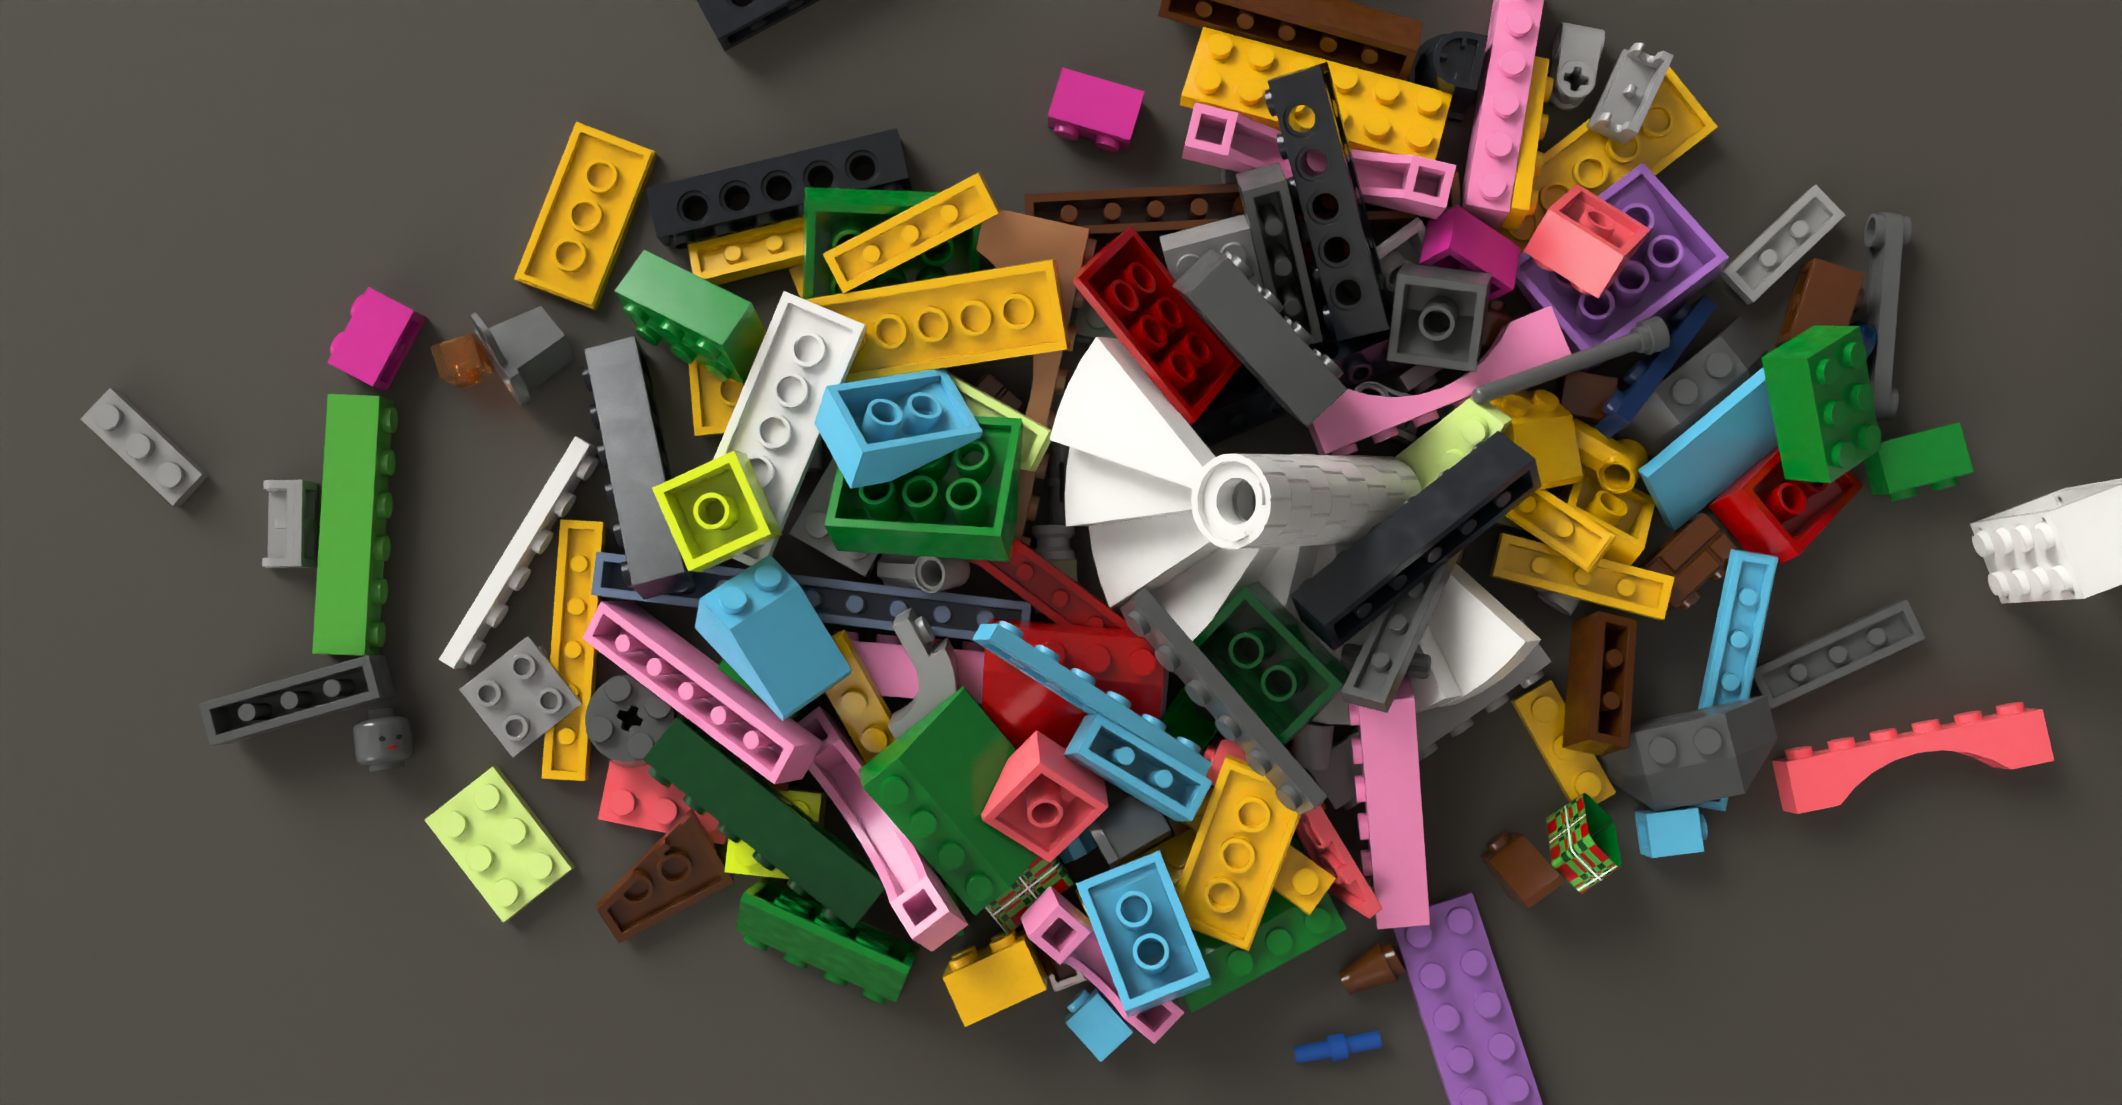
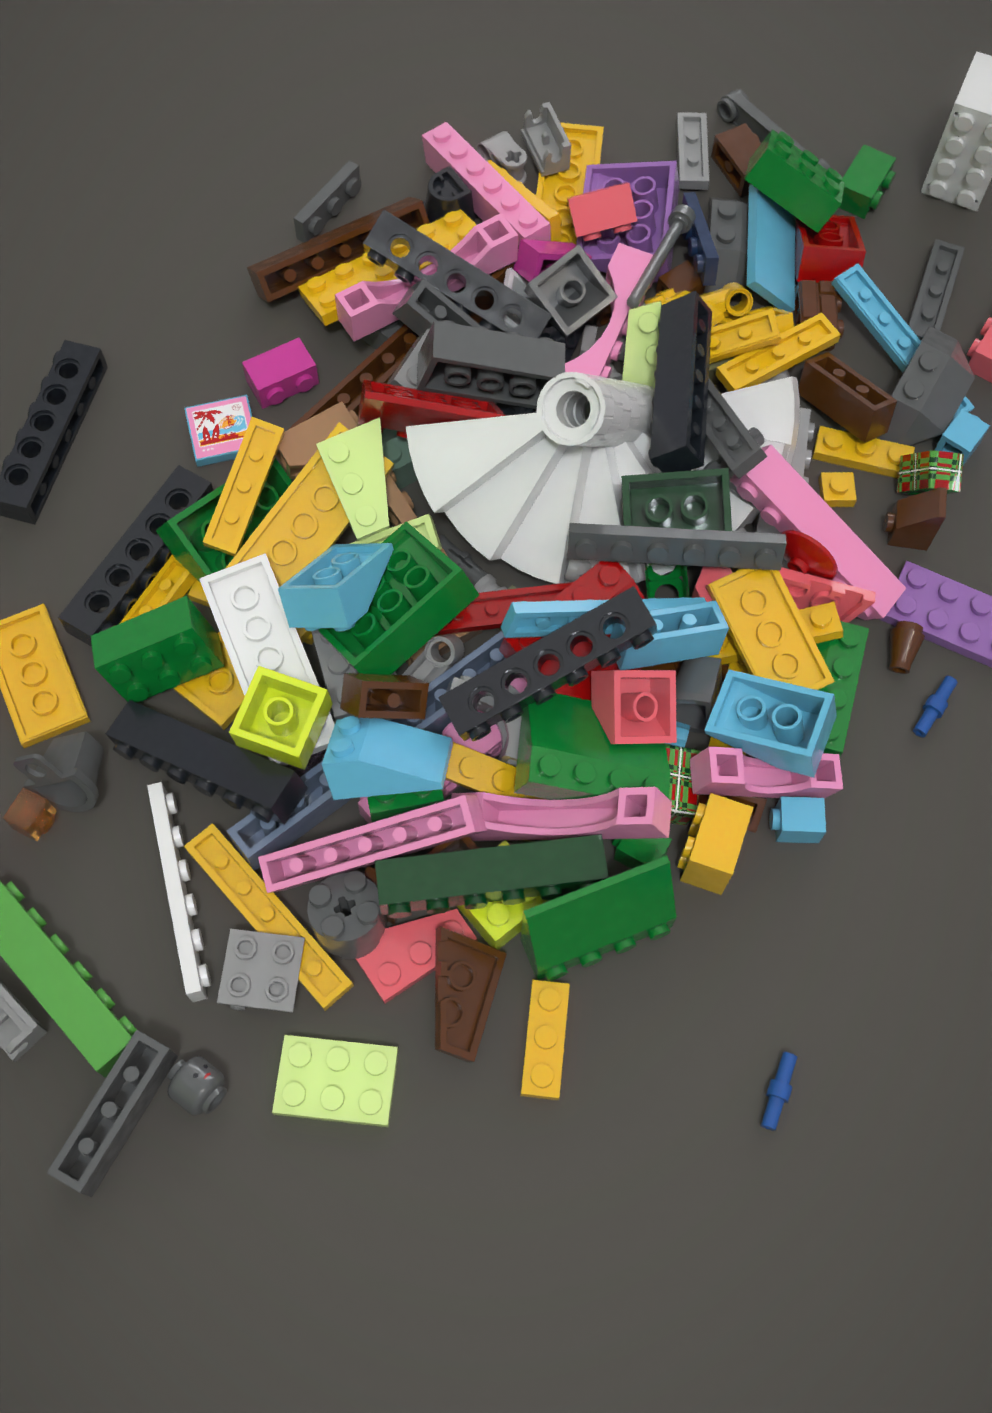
camera: 50 degrees left, 20 degrees down
(696, 982) = (545, 1040): none -> yellow plate
(828, 576) = (384, 696): none -> reddish brown brick
(984, 117) = (218, 429): none -> tile
(1018, 331) = (358, 476): none -> yellowish green wing
(1096, 728) = (623, 609): none -> black brick
(1348, 815) = (808, 555): none -> red dish
(1494, 757) = (837, 488): none -> yellow plate

